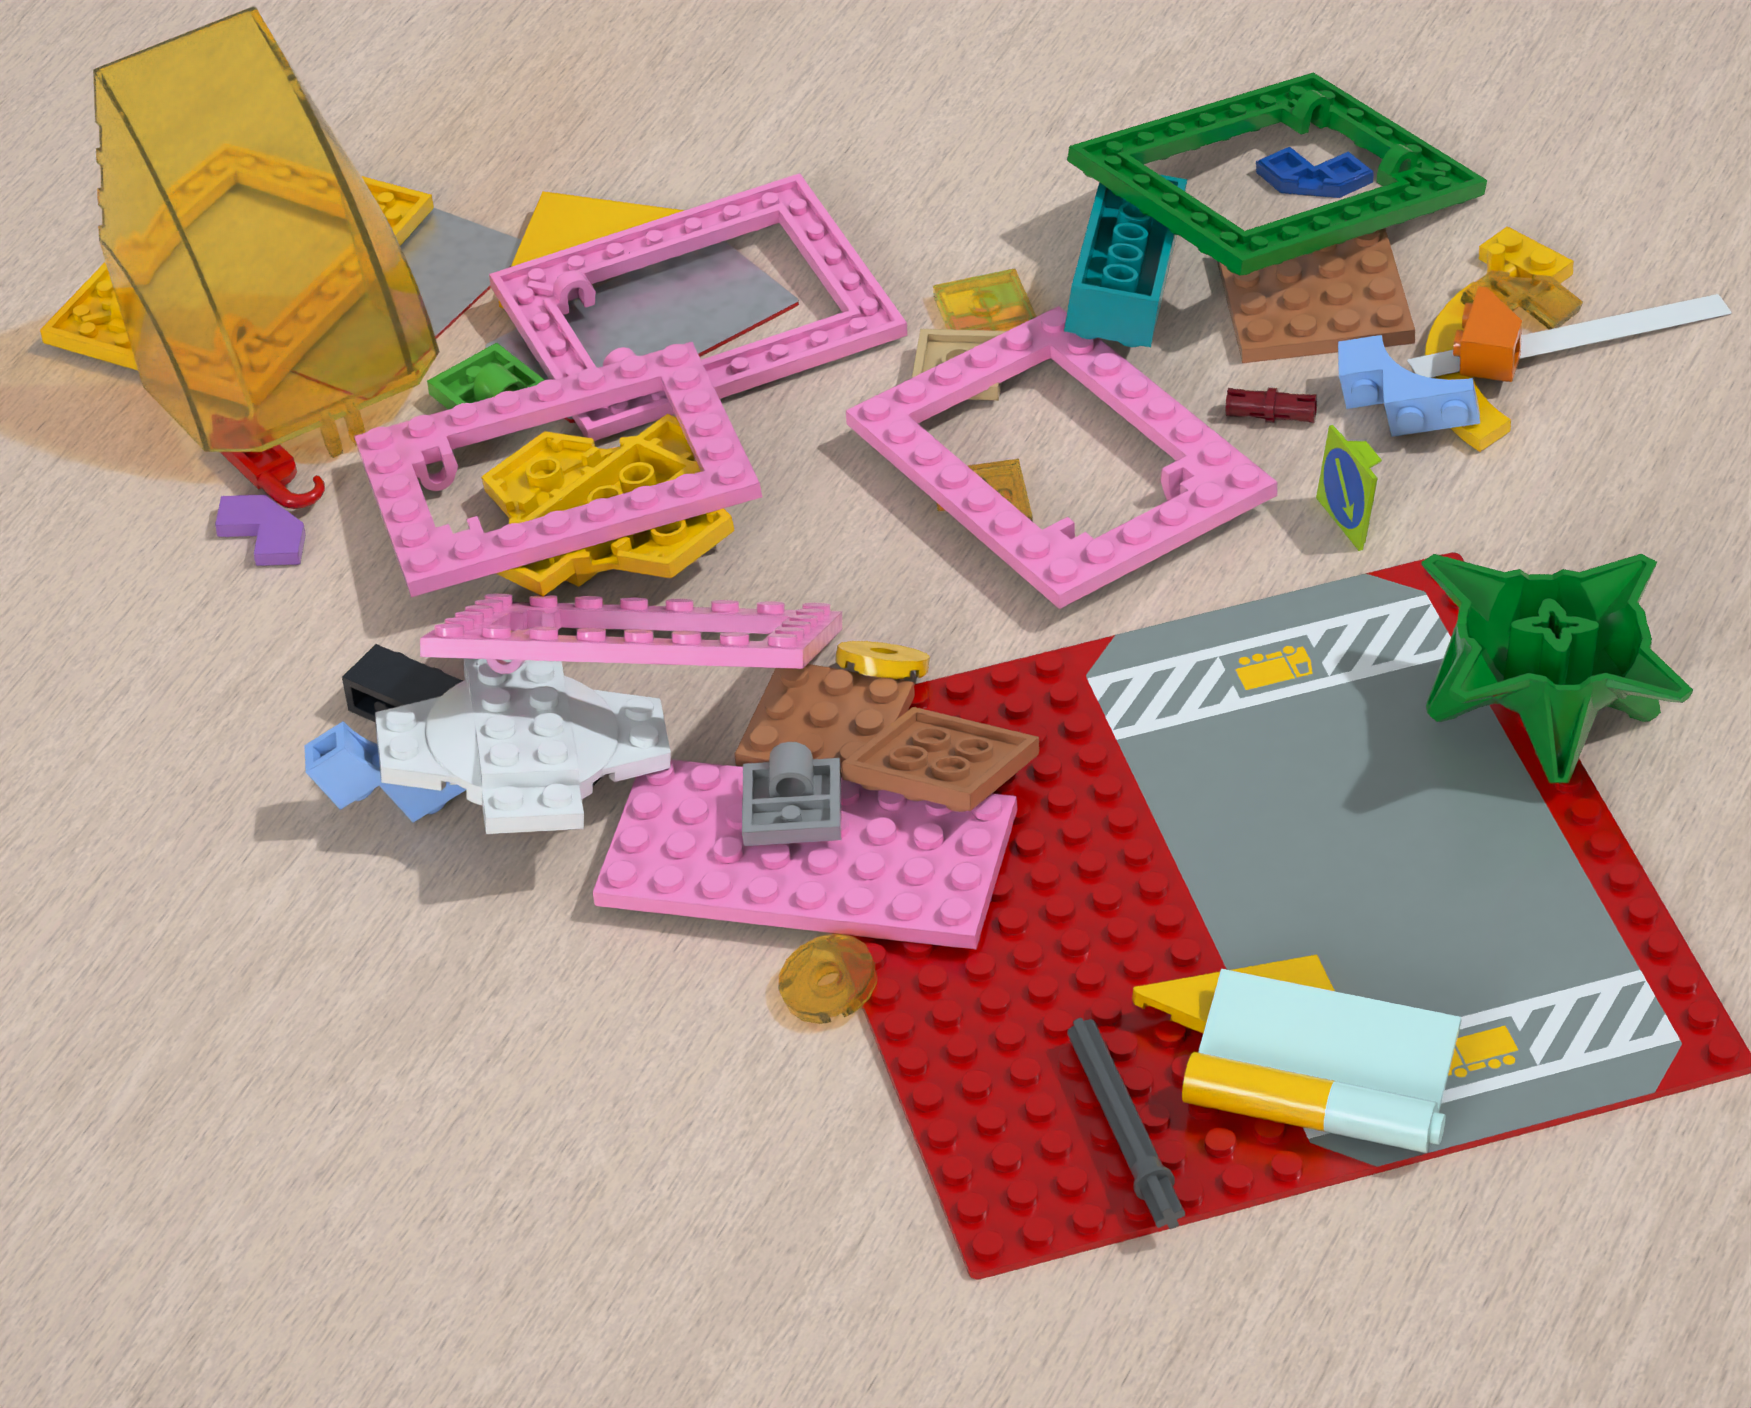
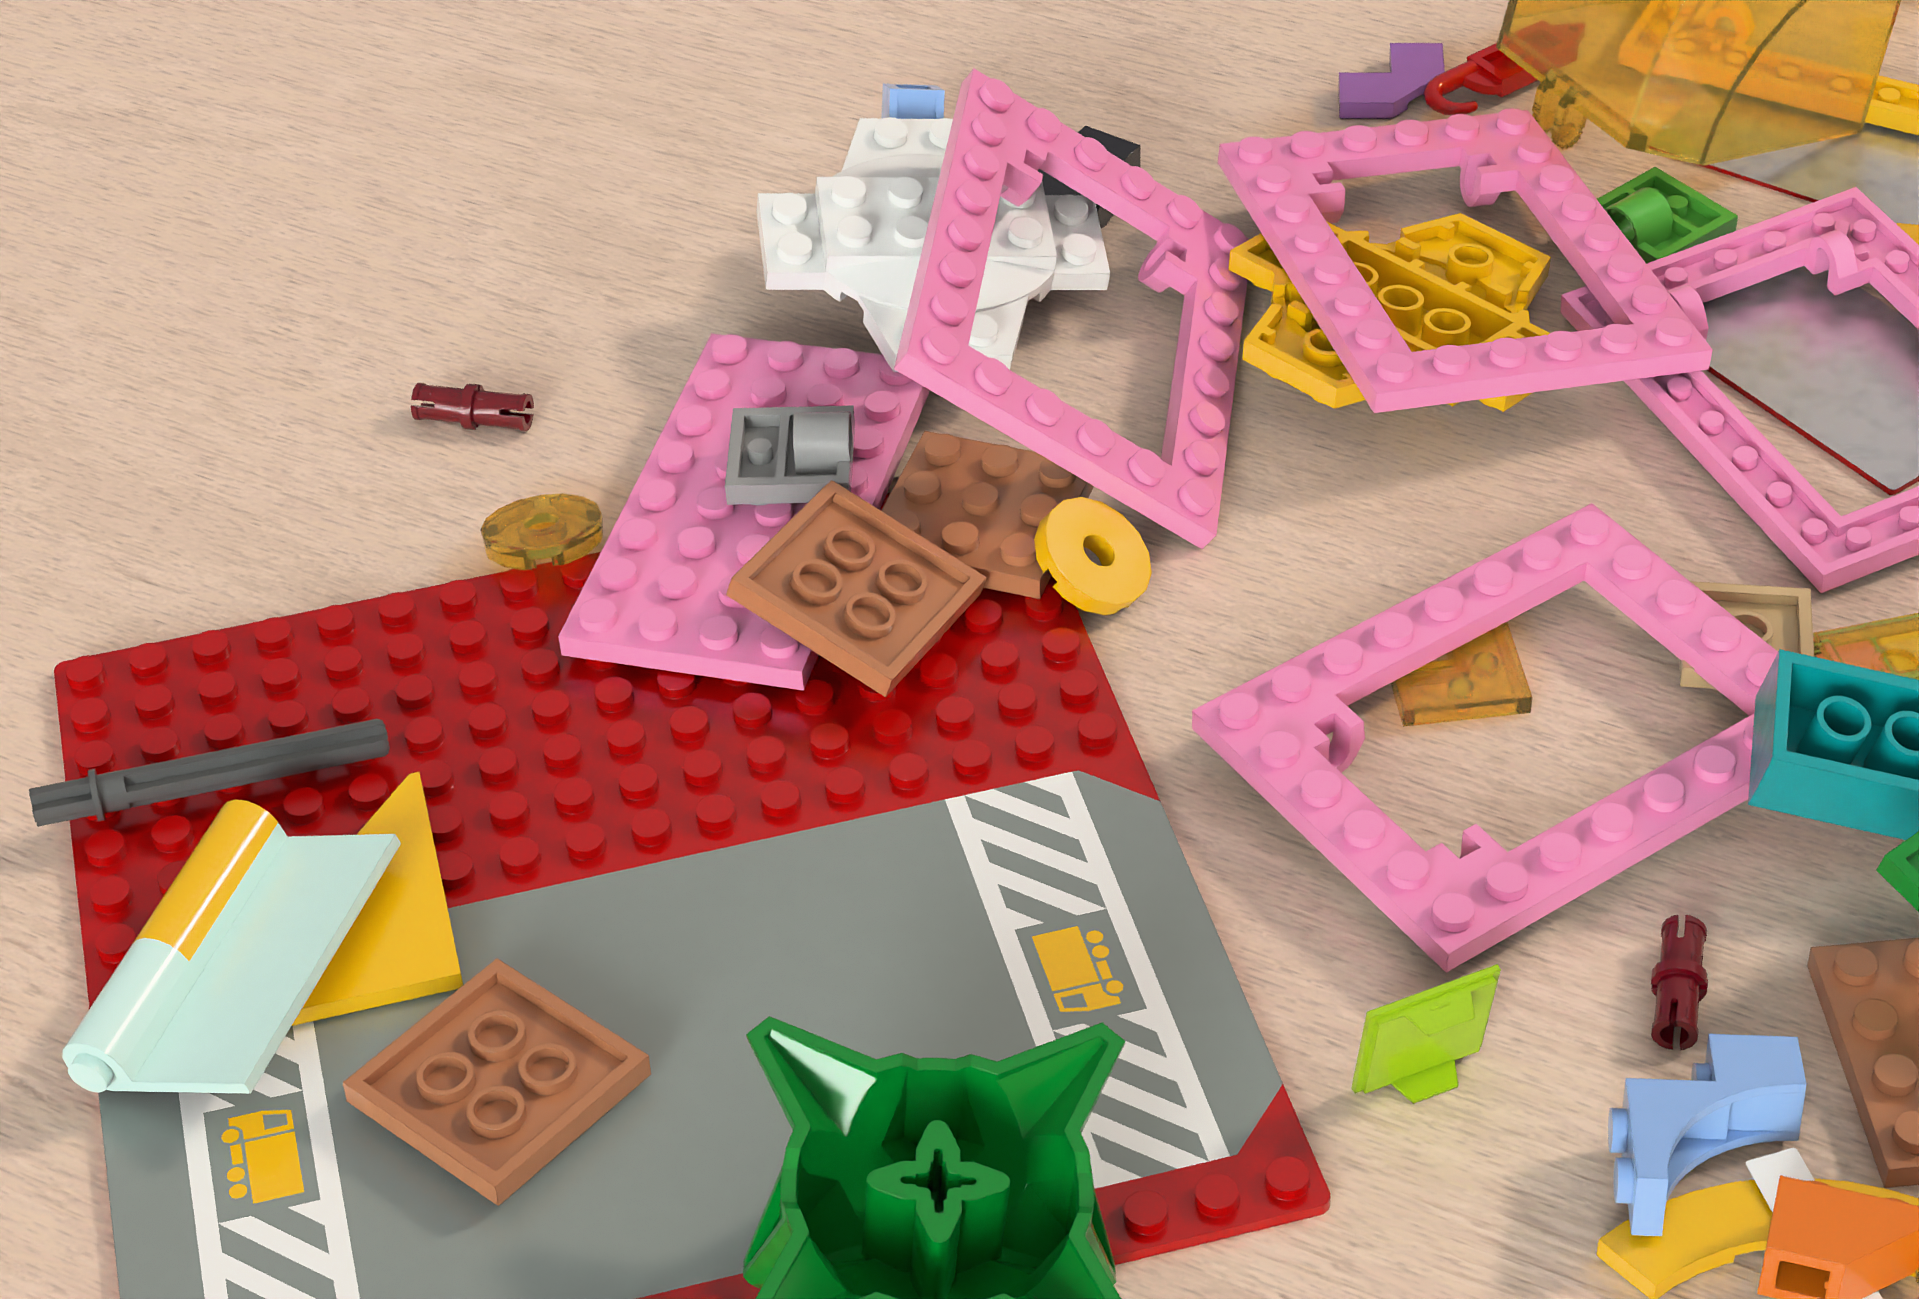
camera: 90 degrees right, 0 degrees up
(656, 1050) = (472, 406): none -> dark red pin
(1411, 923) = (497, 1080): none -> nougat plate

